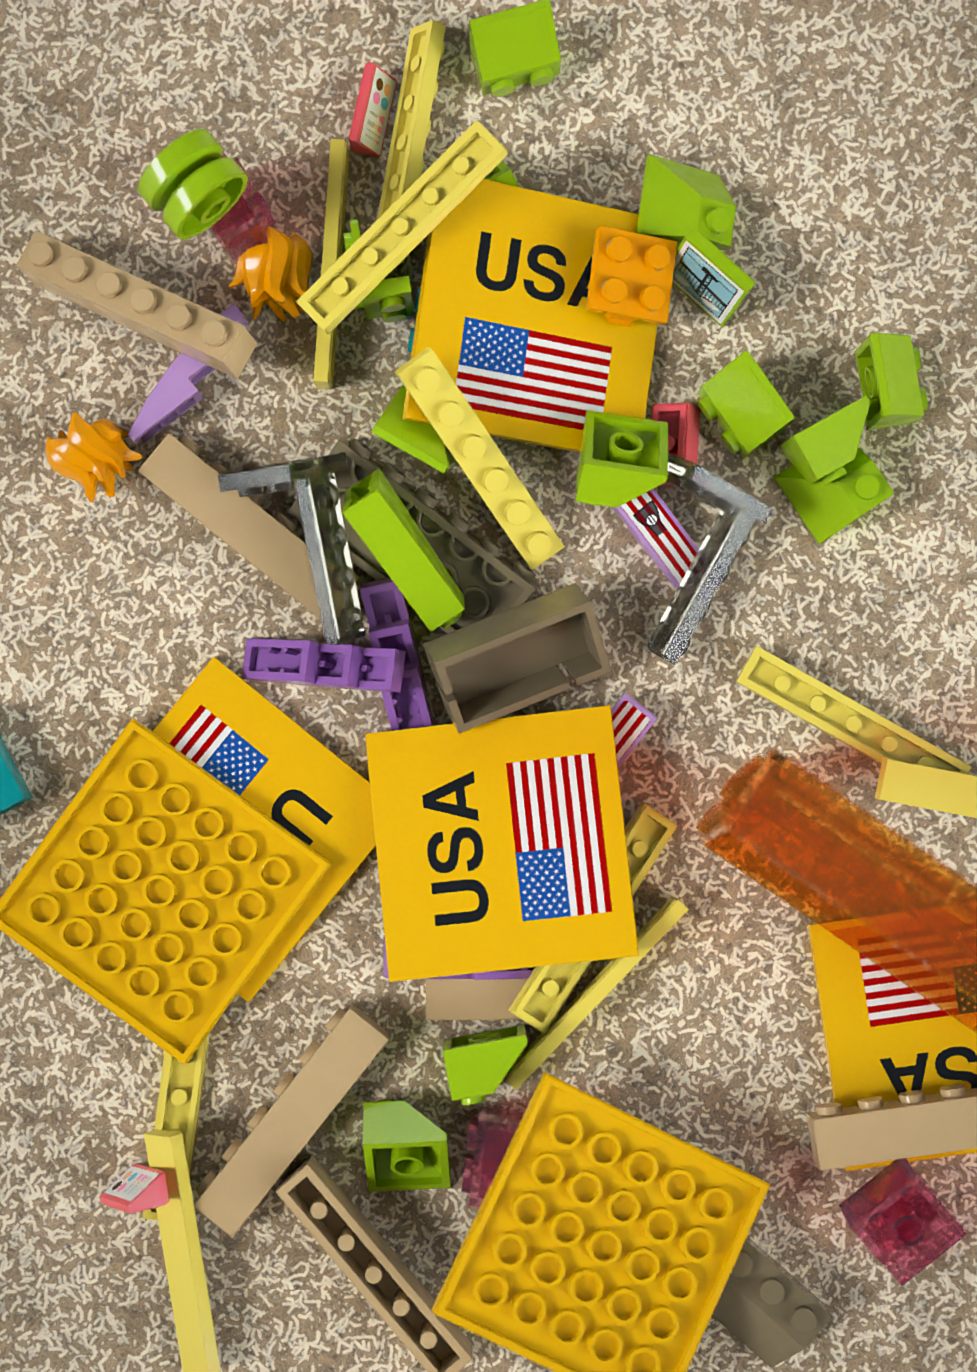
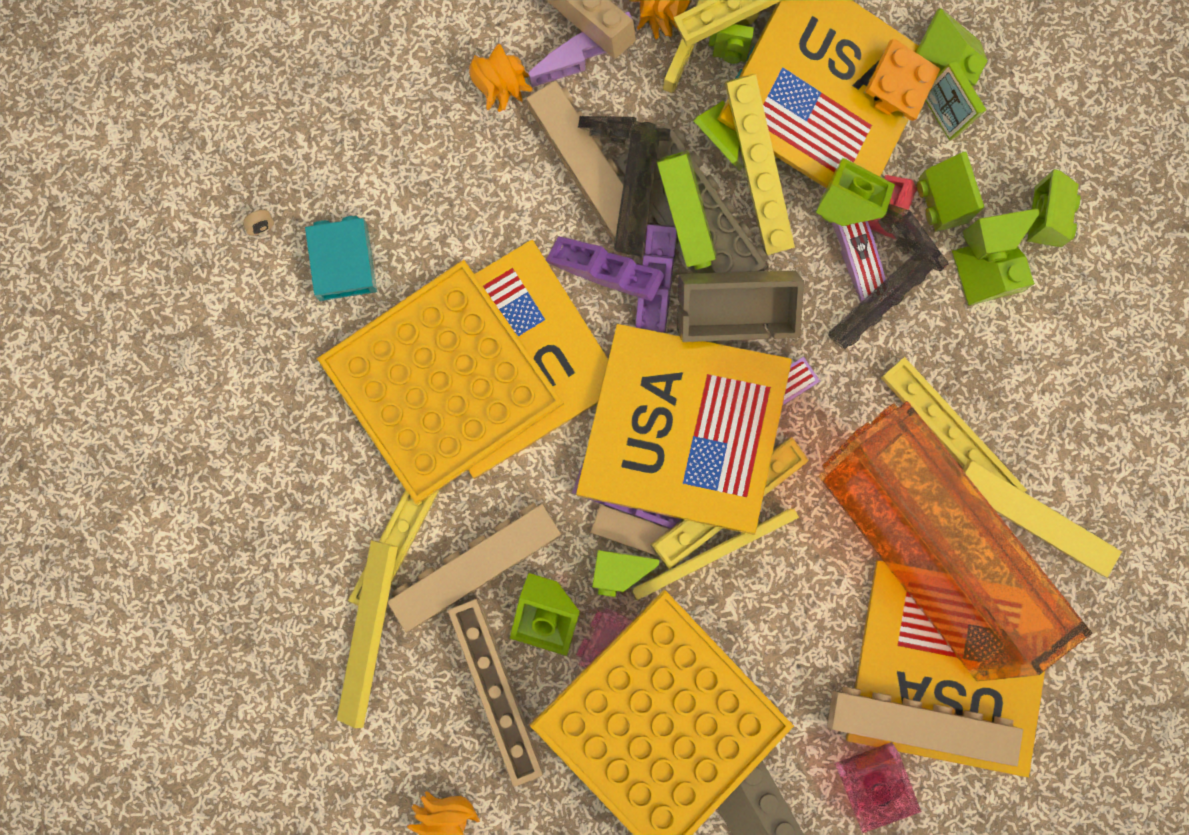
camera: 20 degrees right, 5 degrees down
(137, 1190) = (354, 576): slope -> none

